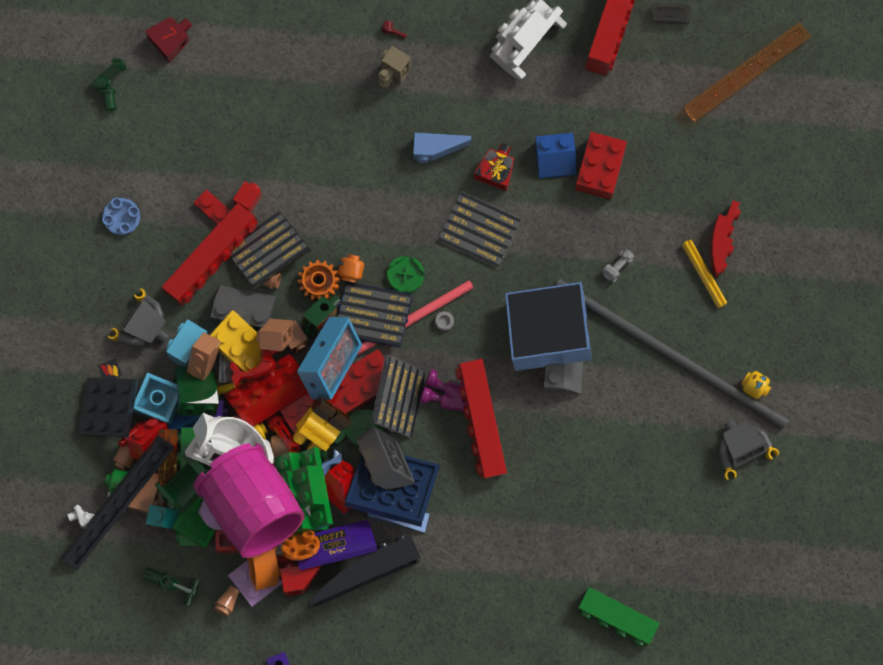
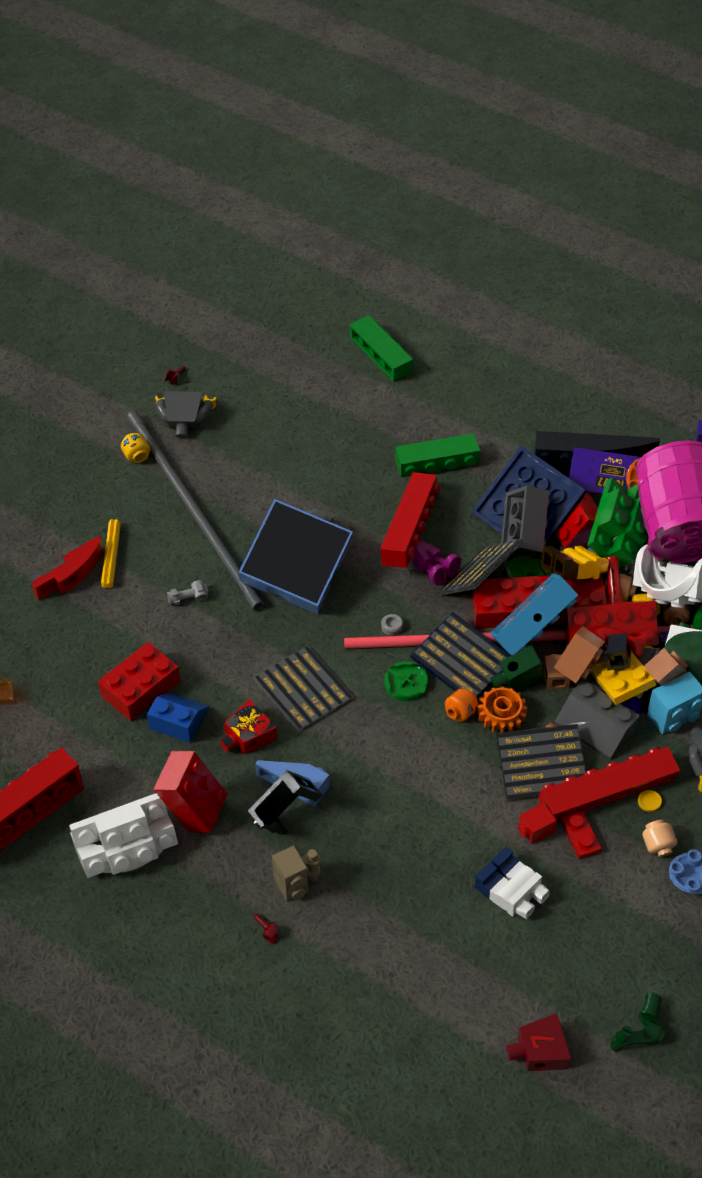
camera: 145 degrees left, 25 degrees down
(155, 229) = (659, 838): none -> light nougat head
(175, 262) = (649, 800): none -> yellow piece
(243, 141) = (511, 884): none -> white hips
(247, 350) = (617, 652): none -> black brick
(428, 111) = (279, 797): none -> black panel
(498, 81) = (190, 791): none -> red brick
(499, 512) = (437, 455): none -> green brick
(780, 491) = (173, 375): none -> dark red hand

